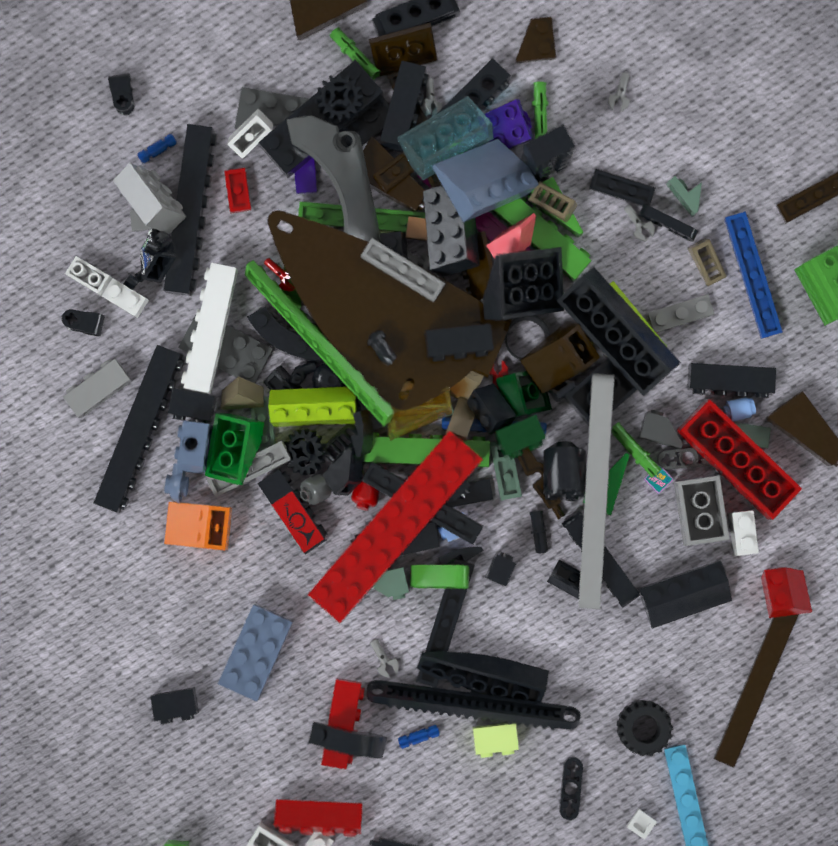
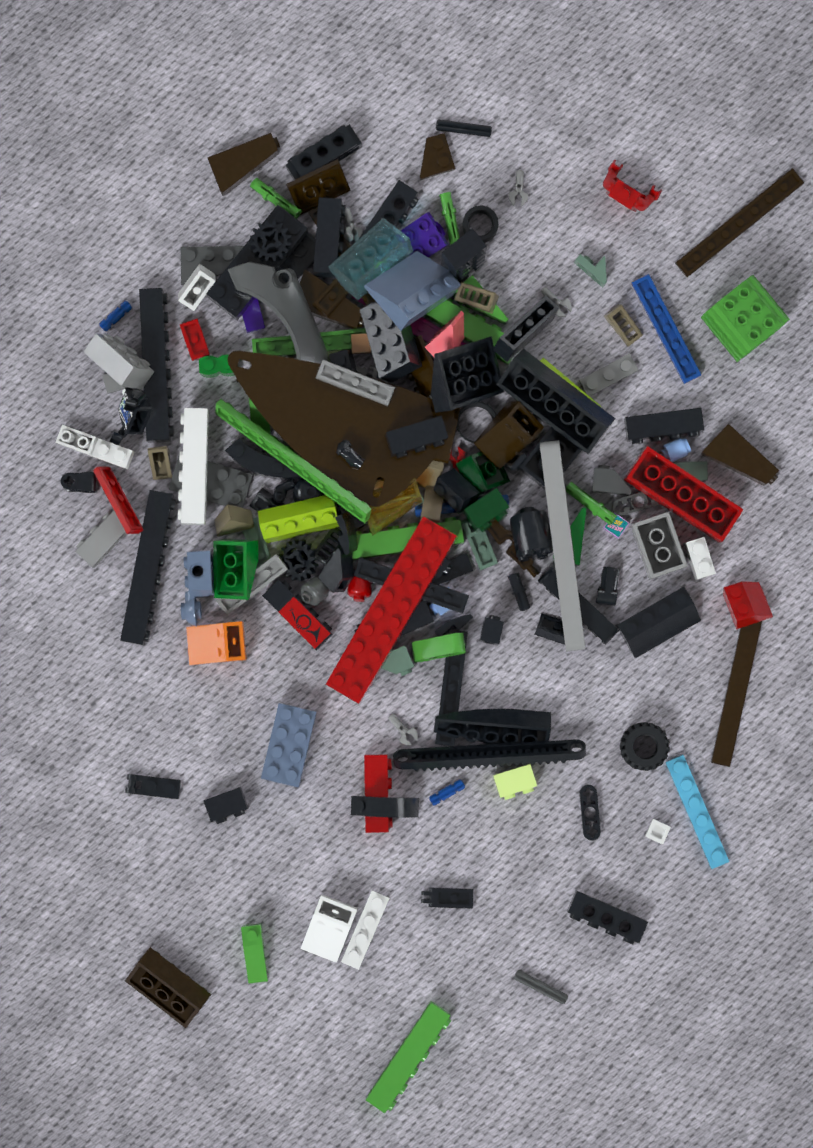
camera: 10 degrees left, 0 degrees up
(100, 669) = (153, 786): none -> black plate
(120, 349) = (118, 500): none -> red tile
(122, 90) = (74, 269): black piece -> none
(174, 317) = (160, 462): none -> dark tan slope
(191, 405) = (190, 538): black brick -> none
(251, 223) = (212, 366): none -> green brick
(283, 275) = (248, 406): red bar -> none
(318, 817) = (372, 879): red brick -> none
(573, 15) = (463, 128): none -> black axle
(583, 111) = (484, 210): none -> black tyre
(601, 246) = (526, 328): none -> black brick
(621, 188) = (535, 273): black tile -> none
(636, 547) = (608, 587): none -> black piece
(674, 225) = (588, 298): black beam -> none
(737, 119) = (625, 193): none -> red torso

